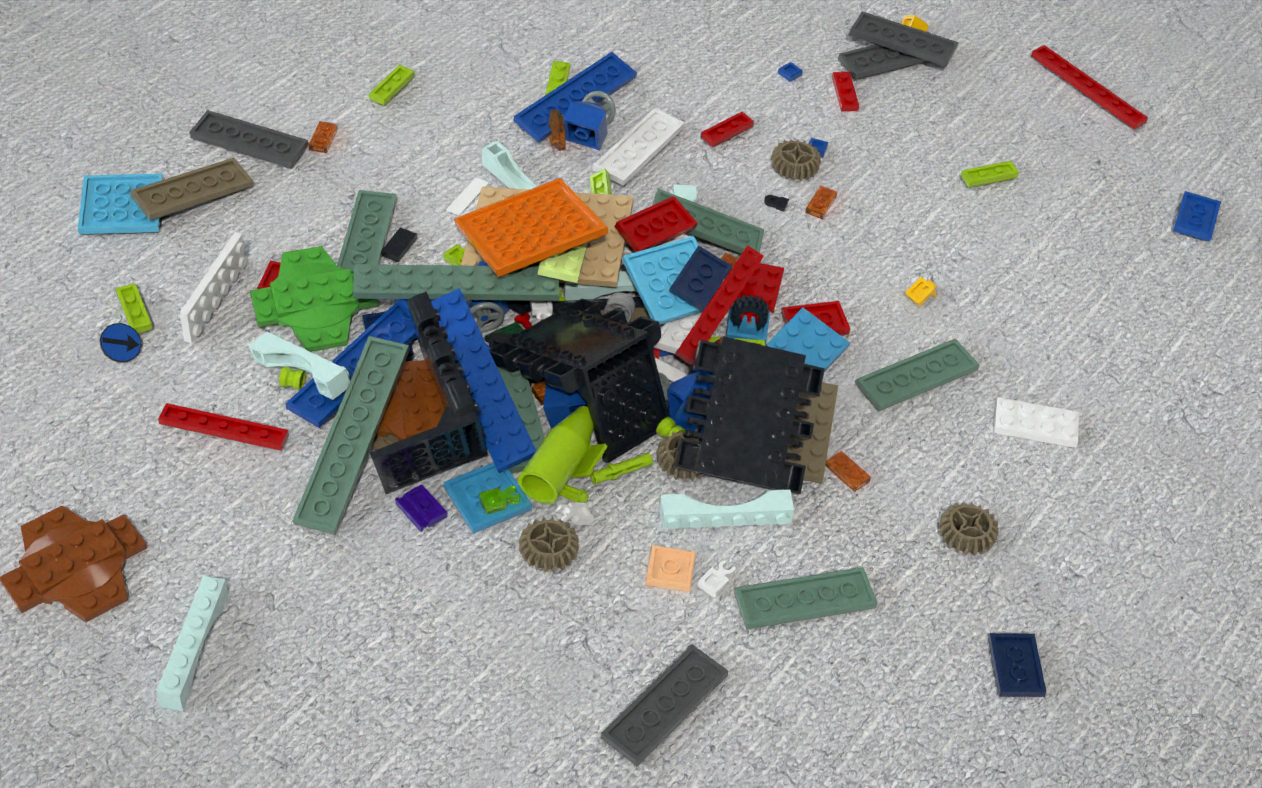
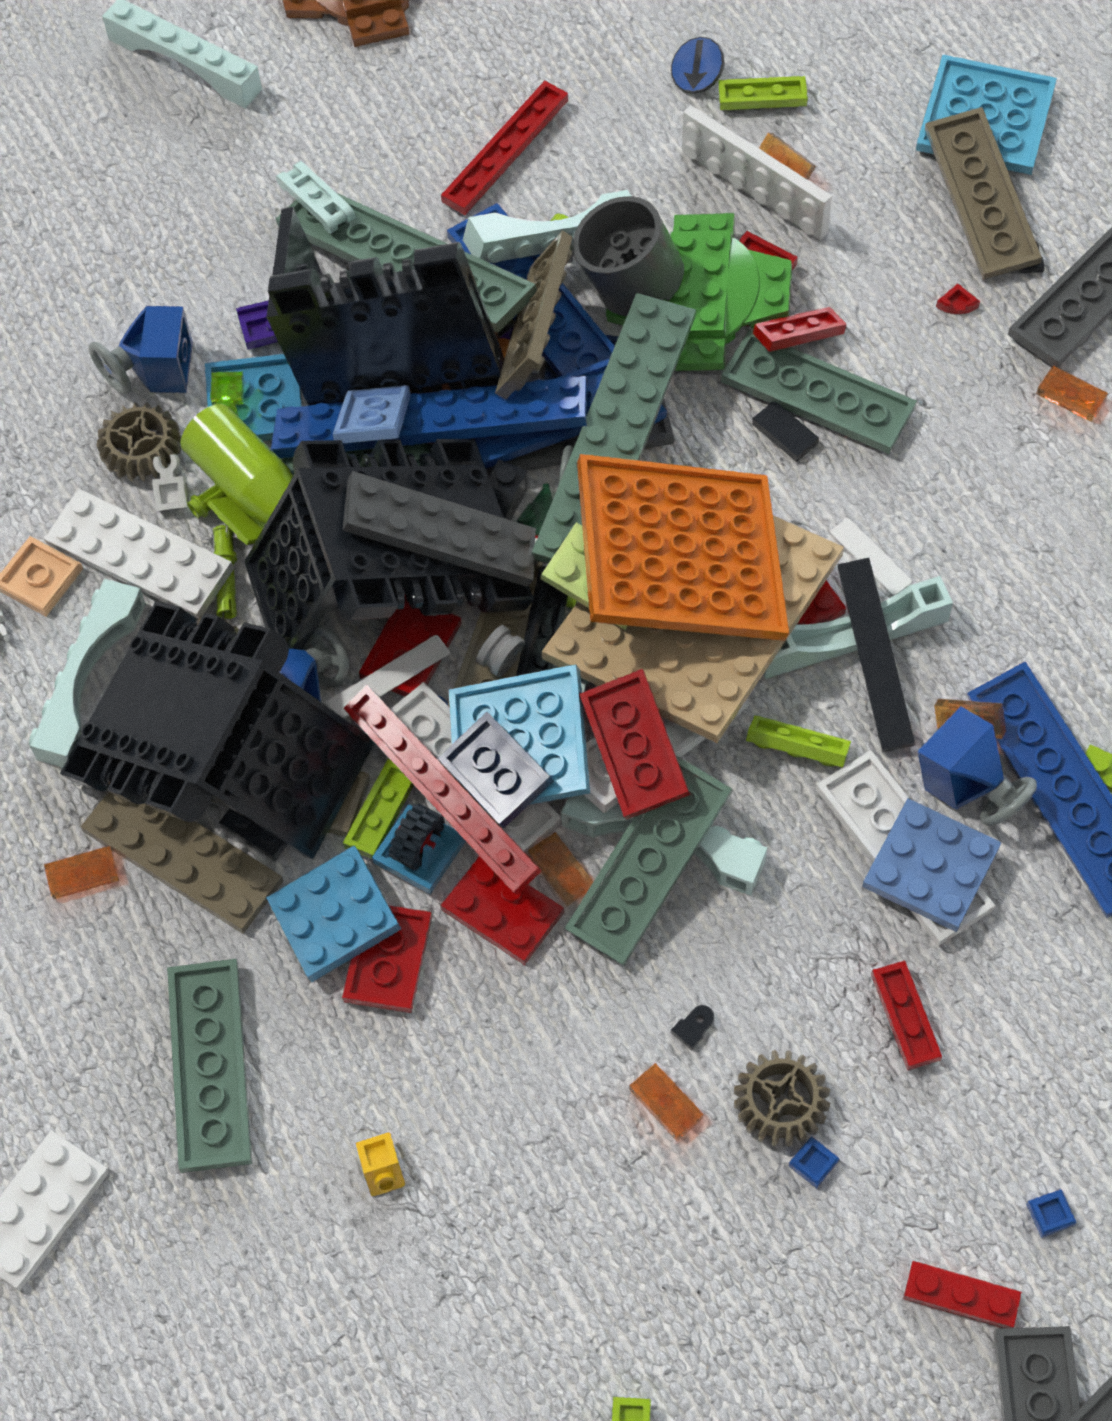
camera: 120 degrees right, 15 degrees up
(190, 282) = (787, 155): none -> clear orange plate
(272, 193) = (958, 301): none -> red tile
(312, 505) = (316, 196): none -> light aqua plate
(321, 295) = (627, 253): none -> dark grey brick
(334, 246) = (799, 329): none -> red plate
(349, 337) = (534, 320): none -> dark tan plate
(478, 551) = (155, 348): none -> blue piece
(501, 388) = (372, 414): none -> light blue tile
(536, 171) = (876, 655): none -> black tile
(575, 322) = (439, 529): none -> dark grey plate
(632, 514) = (139, 553): none -> white plate
(647, 129) = (931, 864): none -> medium blue plate

